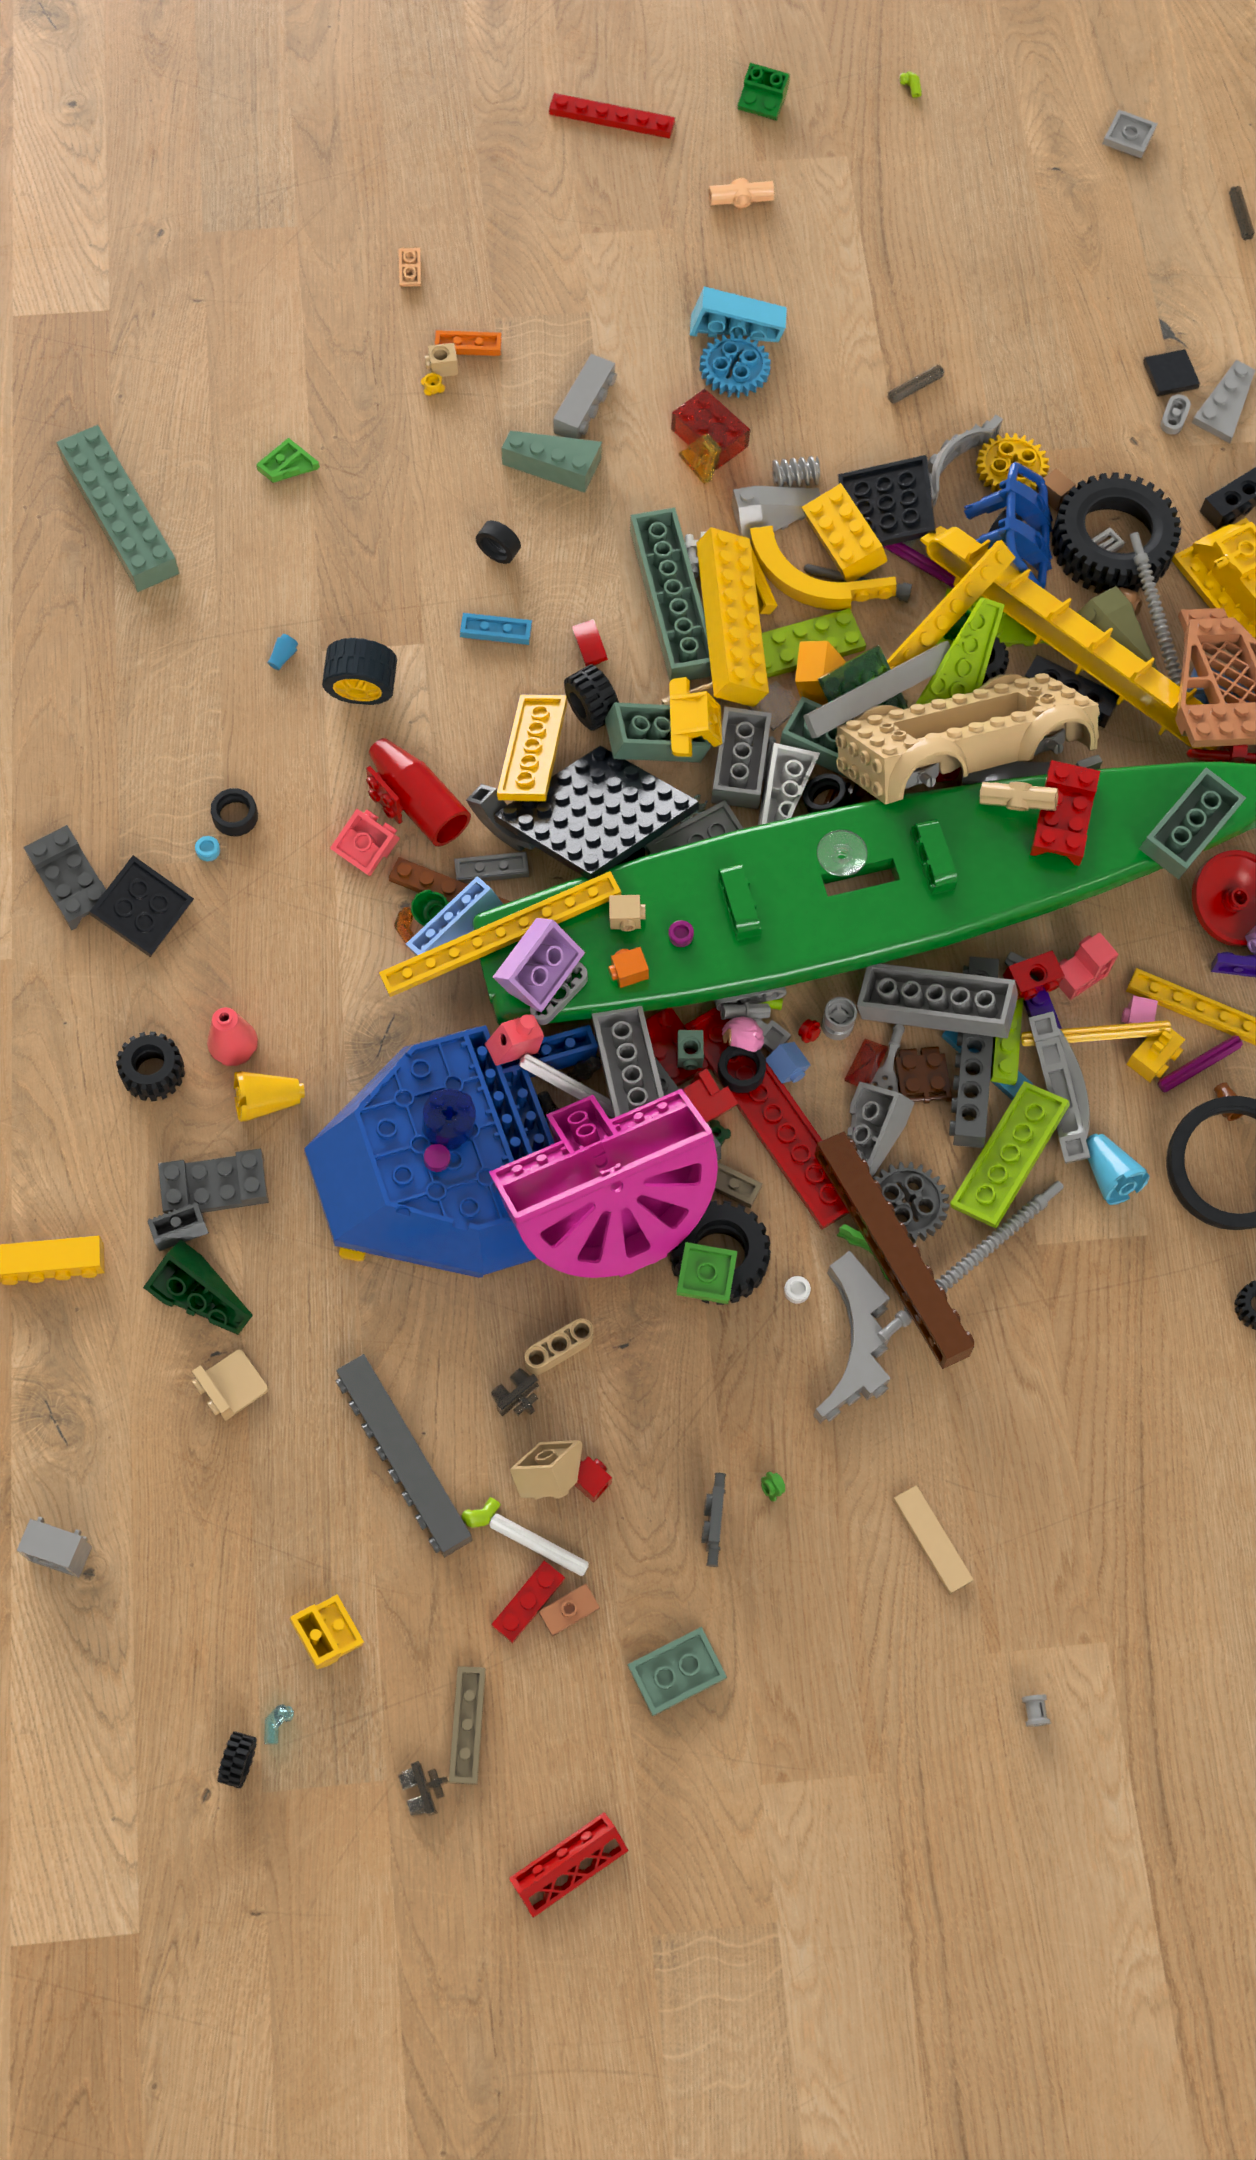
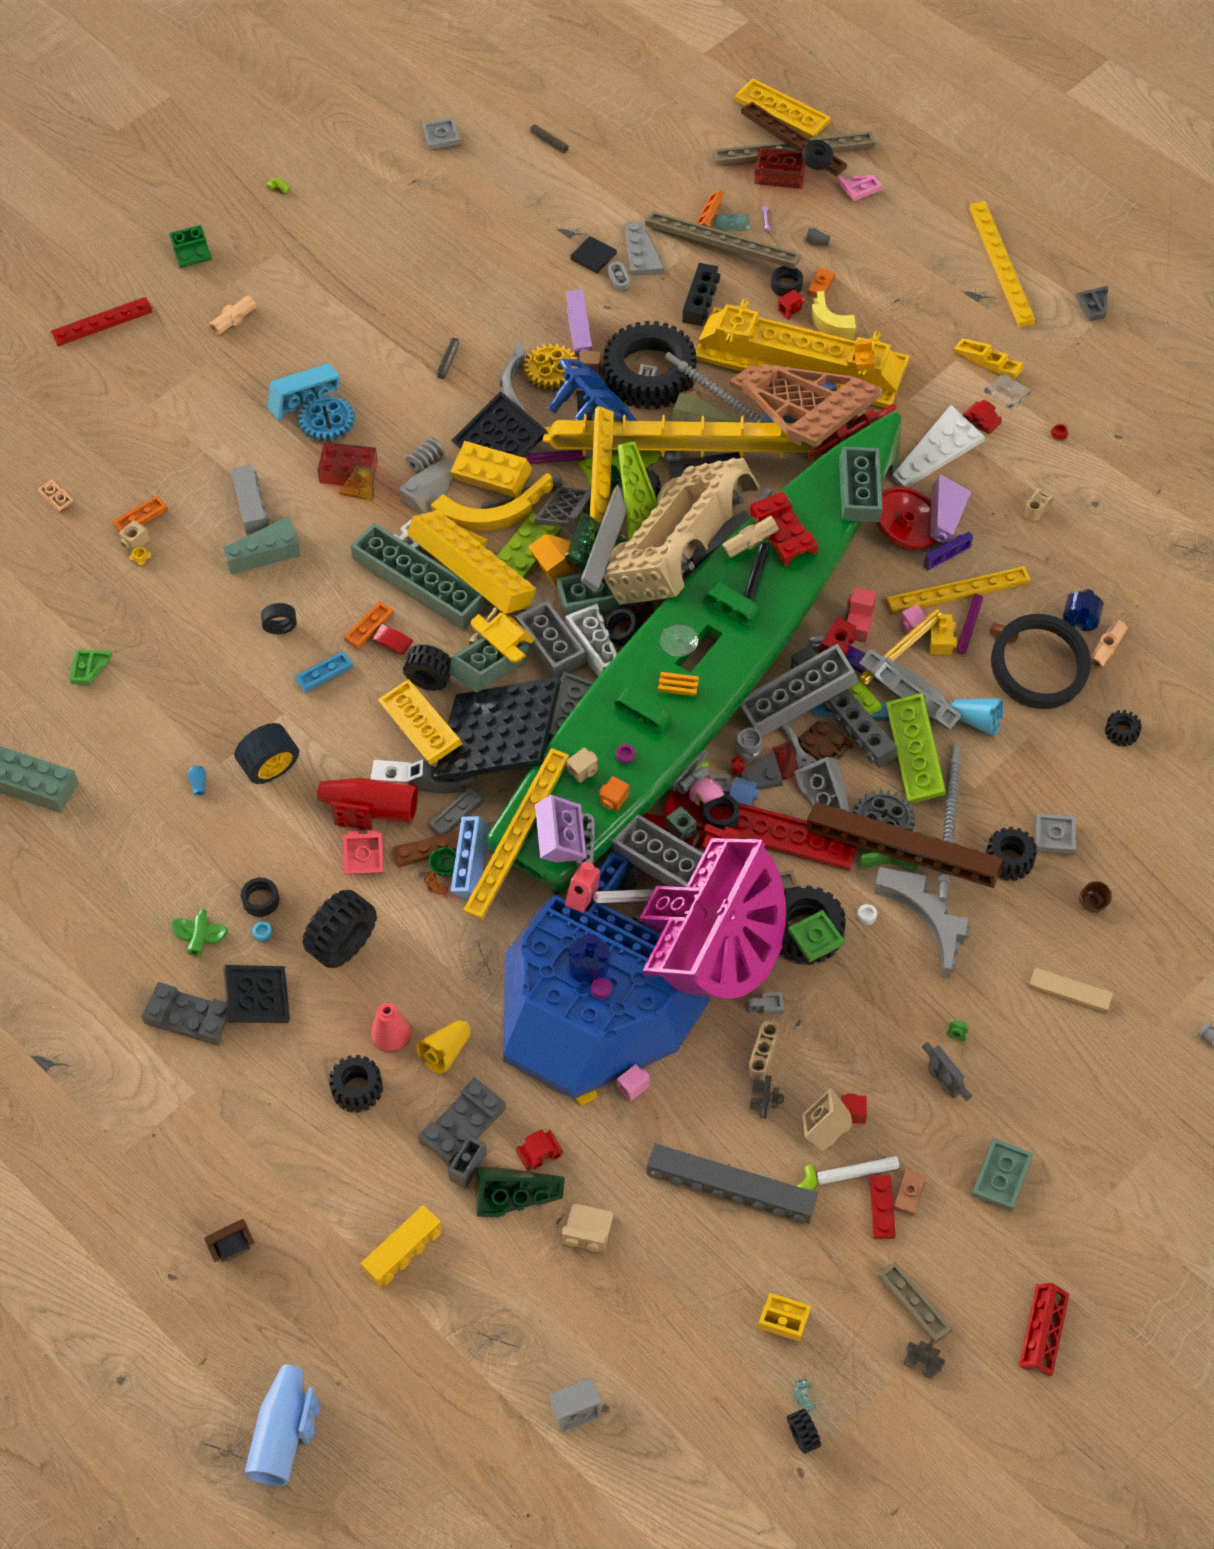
camera: 35 degrees left, 10 degrees down
(149, 803) = (198, 932): none -> bright green plant
(260, 1268) = (538, 1148): none -> red cylinder
(262, 900) = (339, 928): none -> black tyre
(403, 1275) = (633, 1082): none -> bright pink brick
(457, 772) = (384, 770): none -> white brick
(581, 611) = (368, 625): none -> orange plate
(611, 1303) = (770, 1003): none -> light grey plate
(787, 884) = (678, 680): none -> light orange tile
(830, 1059) = (764, 772): none -> dark grey wing
(891, 639) = (583, 505): none -> dark grey fence
(992, 839) = (756, 570): none -> black axle
(1014, 1328) = (1019, 842): none -> black tyre
(1049, 652) = (672, 456): none -> light grey arm
(1050, 1463) = (1095, 896): none -> reddish brown hair
(1075, 1361) = (1055, 833): none -> light grey plate
(1082, 435) = (578, 321): none -> lavender slope

